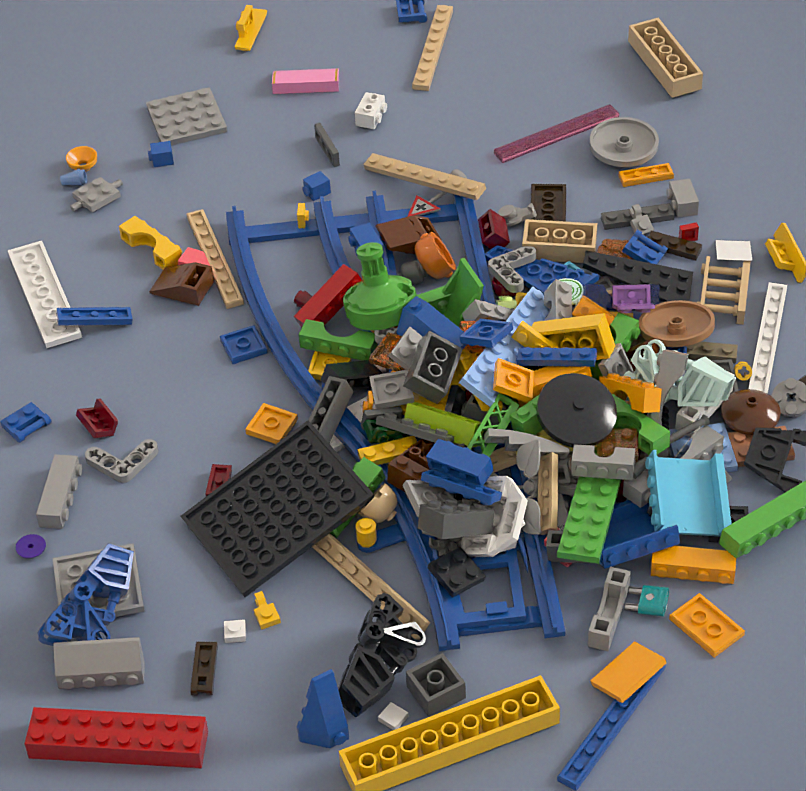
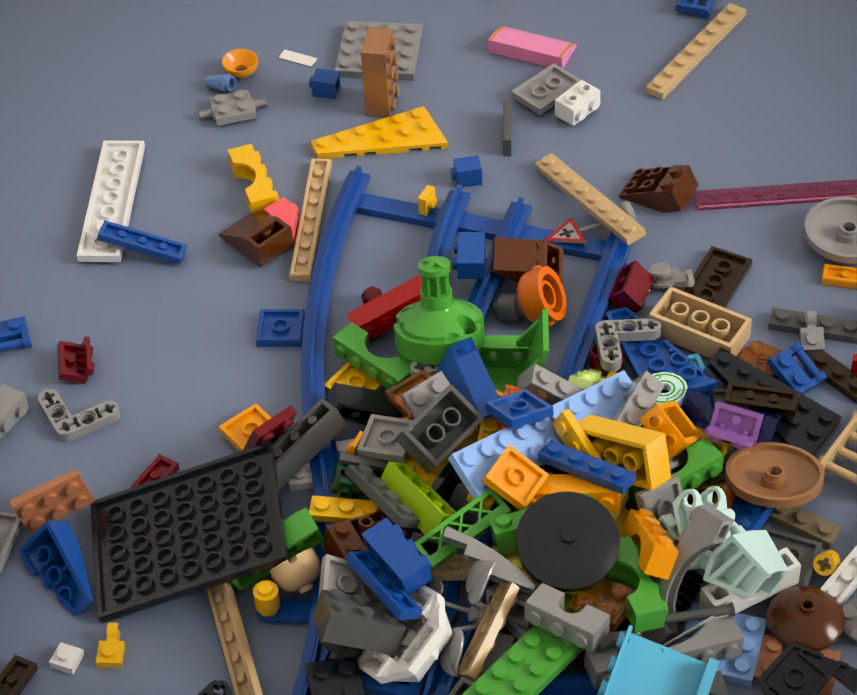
camera: 25 degrees right, 0 degrees up
(122, 142) = (298, 58): none -> white sticker
(156, 523) = (52, 500): none -> nougat plate
(185, 567) = (58, 561): none -> blue wedge
(211, 130) = (380, 72): none -> medium nougat brick
(235, 178) = (384, 136): none -> yellow wing
(301, 413) = (272, 429): none -> dark red plate
(338, 108) = (543, 88): none -> light grey plate
(469, 153) = (661, 187): none -> reddish brown slope
(638, 274) = (762, 398): none -> dark brown plate

